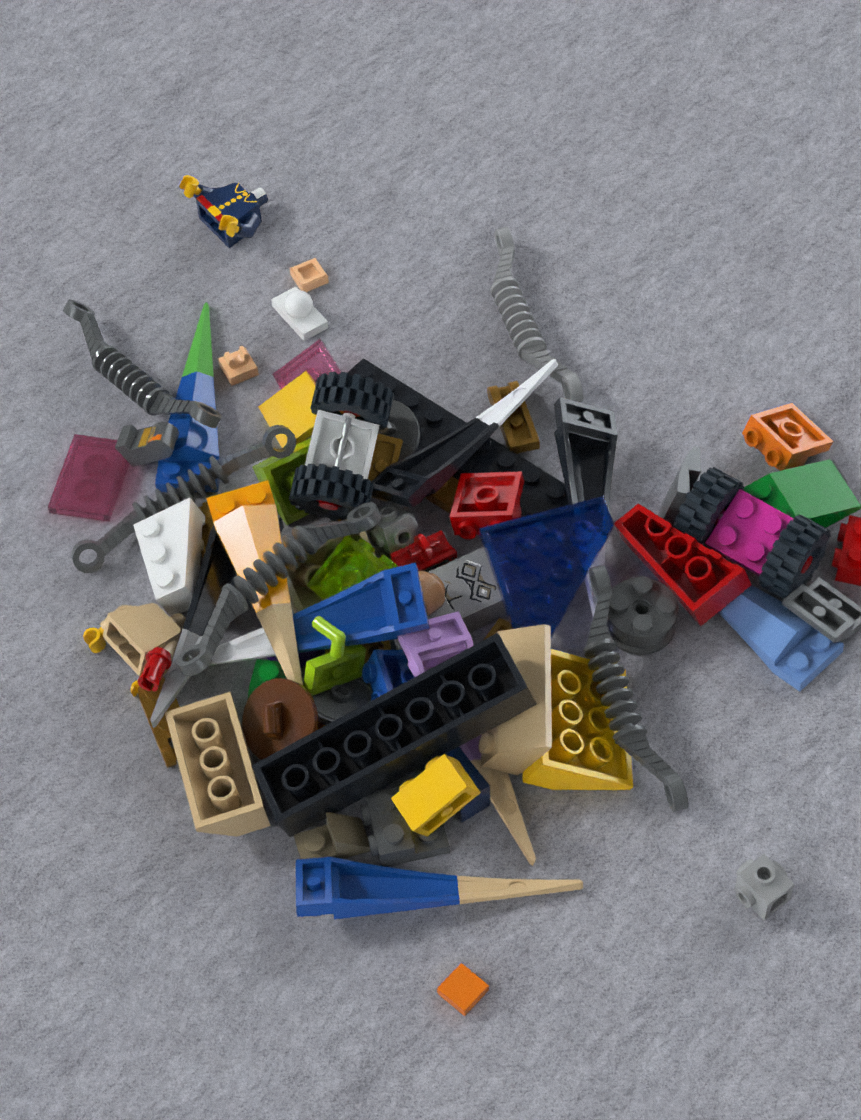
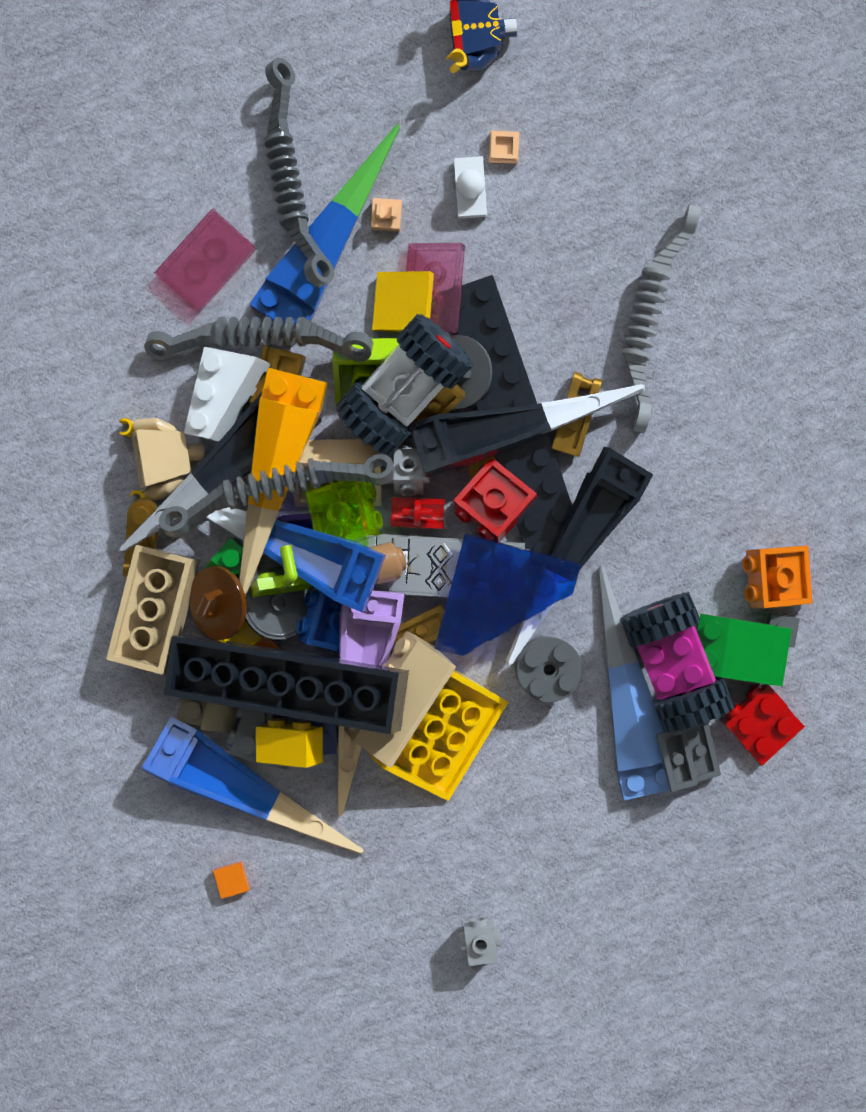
camera: 30 degrees right, 35 degrees up
(147, 443) = (260, 262): dark grey leg -> none
(157, 662) = (145, 504): red pin -> none
(629, 735) = (491, 687): dark grey piece -> none
(681, 485) = (648, 582): dark grey slope -> none
(694, 573) = (604, 655): red wedge -> none

